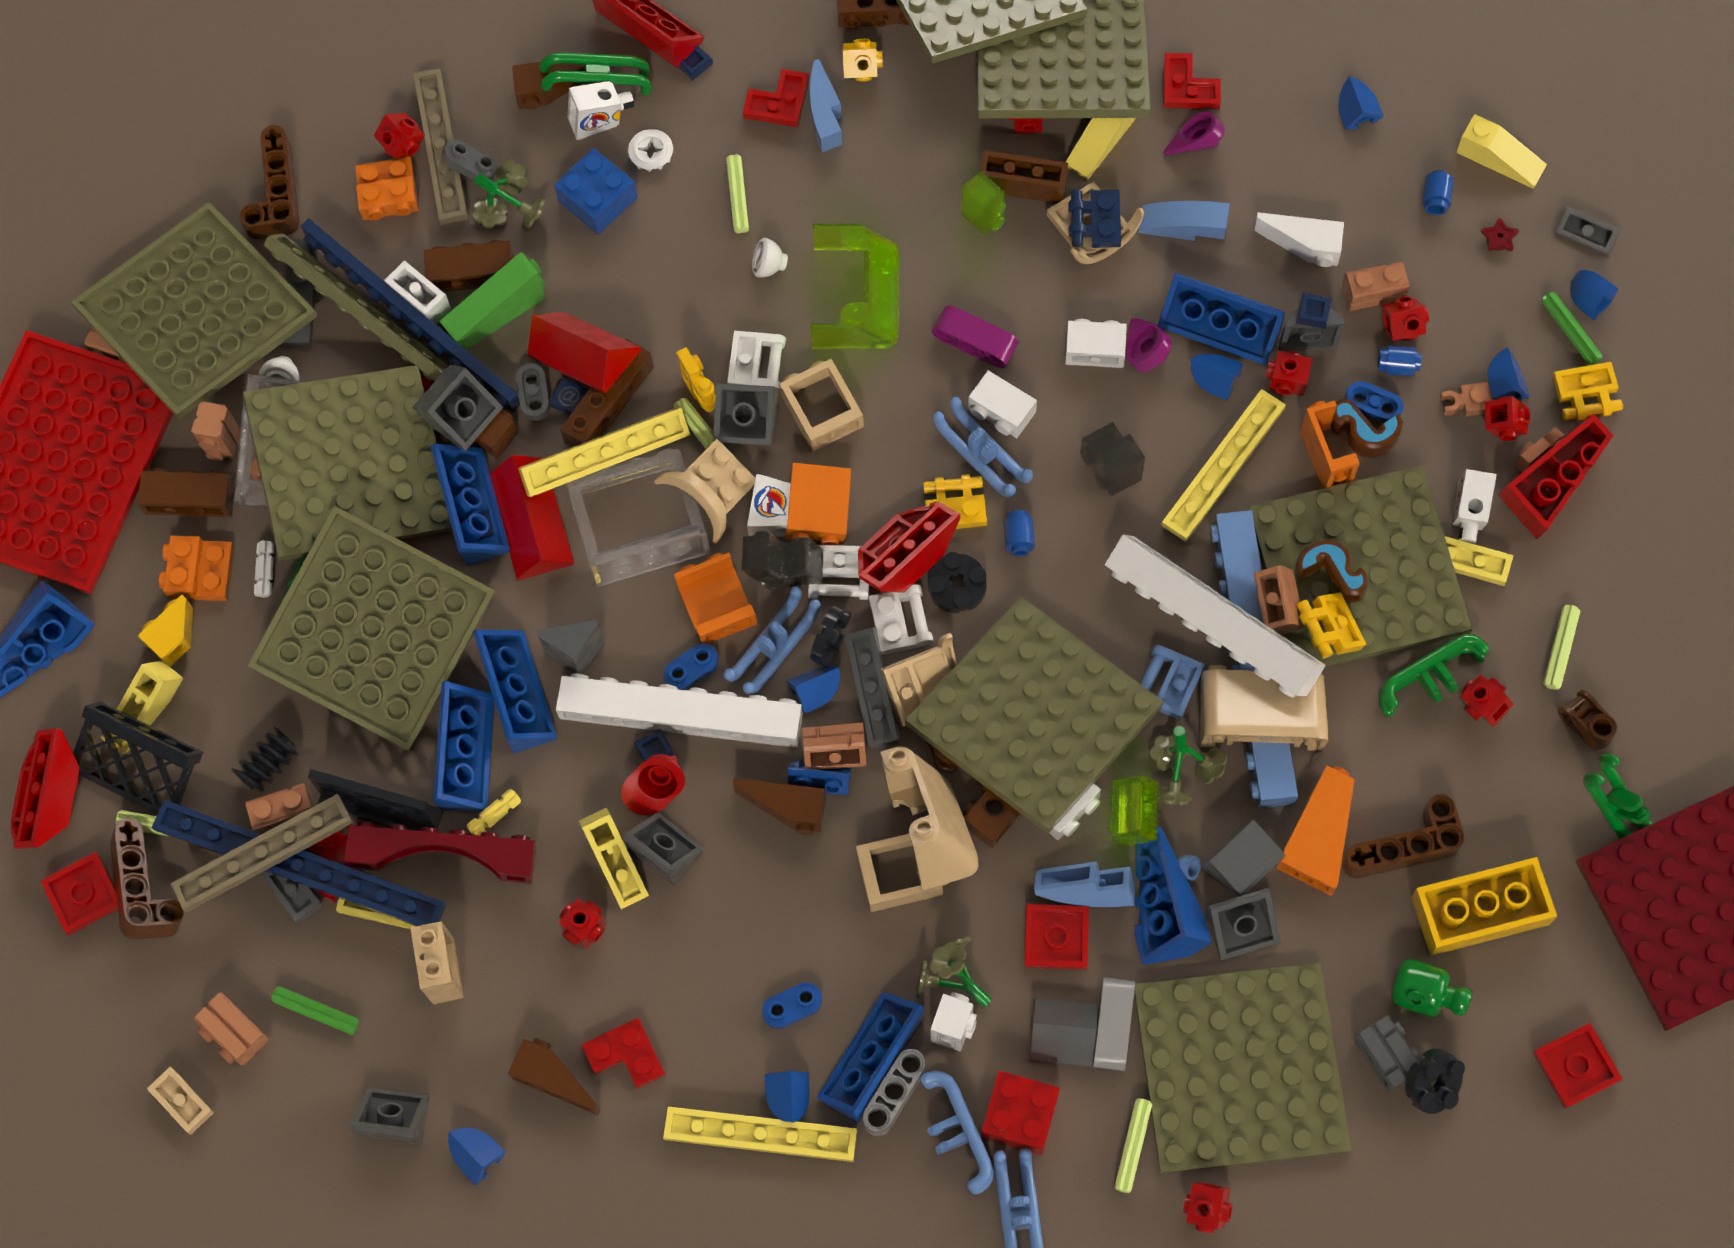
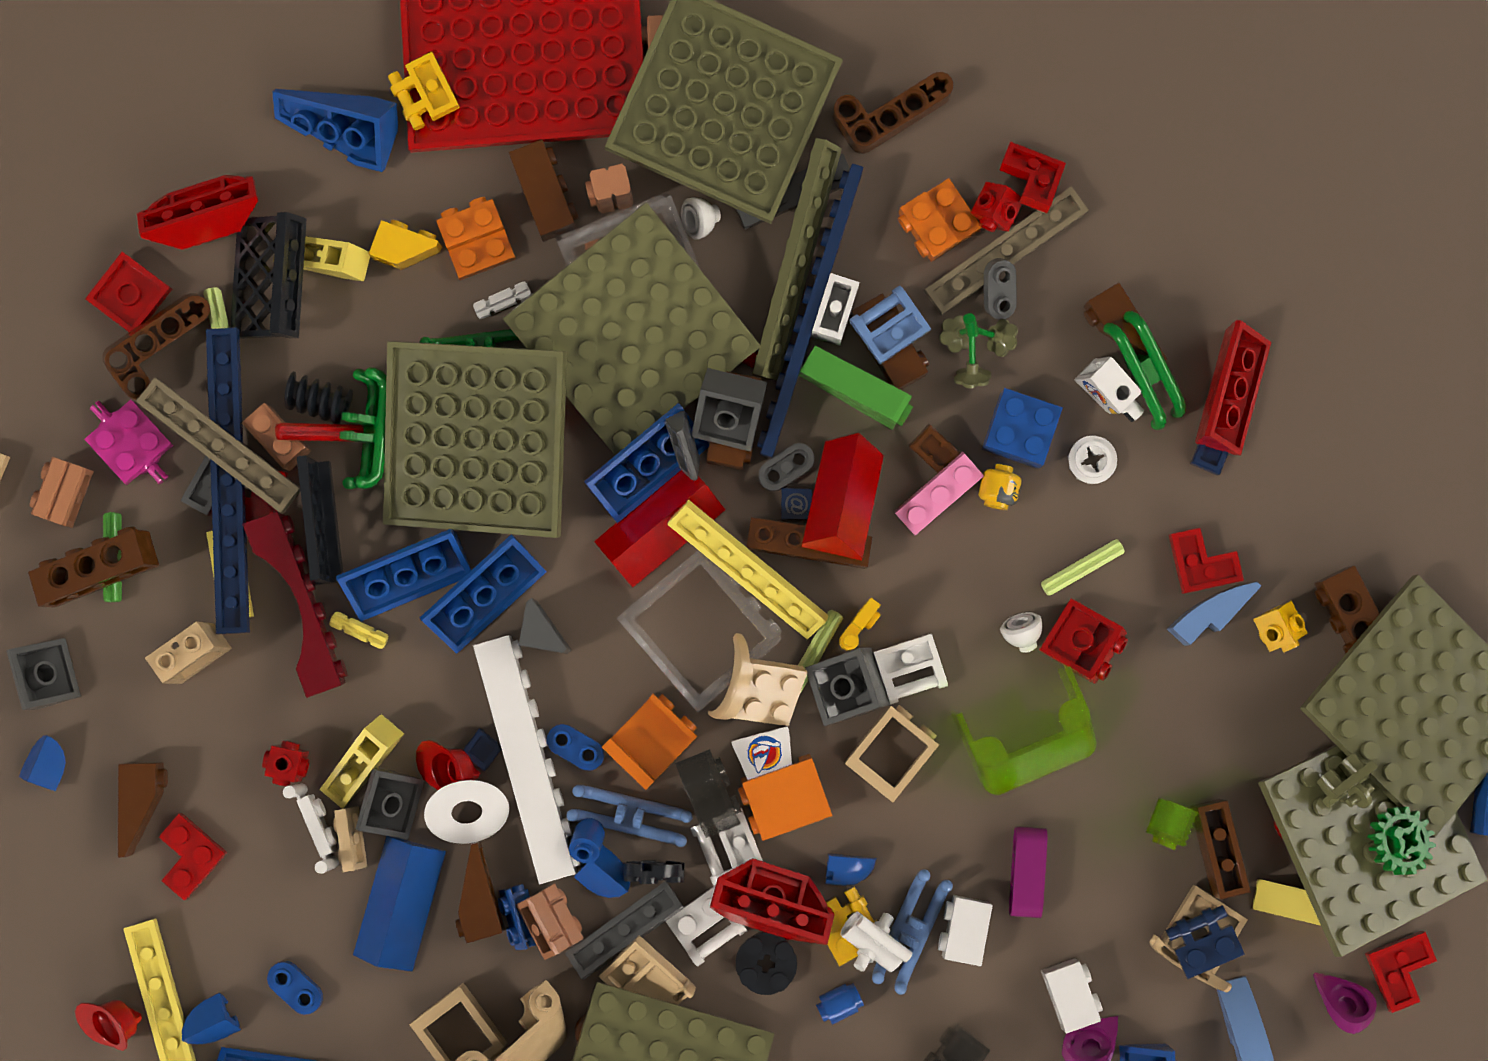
camera: 60 degrees right, 15 degrees up
(43, 543) = (431, 86): none -> yellow plate
(217, 951) = (128, 442): none -> dark pink plate
(297, 766) = (314, 431): none -> red axle
(318, 723) = (374, 430): none -> green piece
(324, 1038) = (136, 557): none -> reddish brown brick
(388, 92) = (1039, 171): none -> red plate
(462, 249) = (896, 332): none -> medium blue plate
(469, 460) = (683, 444): none -> dark grey slope
(586, 264) = (934, 448): none -> reddish brown plate
(617, 278) = (939, 493): none -> bright pink plate
(636, 227) = (1000, 487): none -> yellow head
(641, 920) = (313, 813): none -> white plate
(664, 893) = (351, 842): none -> tan plate
(685, 756) = (440, 806): none -> white sticker
(744, 1191) = (108, 1023): none -> red piece
(757, 879) = (399, 904): none -> blue slope
(777, 683) = (587, 840): none -> blue brick
(796, 209) = (1085, 641): none -> red plate
(904, 482) = (848, 869): none -> blue brick
(976, 474) = (874, 942): none -> white pin
(1013, 45) = (1357, 773): none -> olive hips
(1076, 30) = (1401, 840): none -> green gear

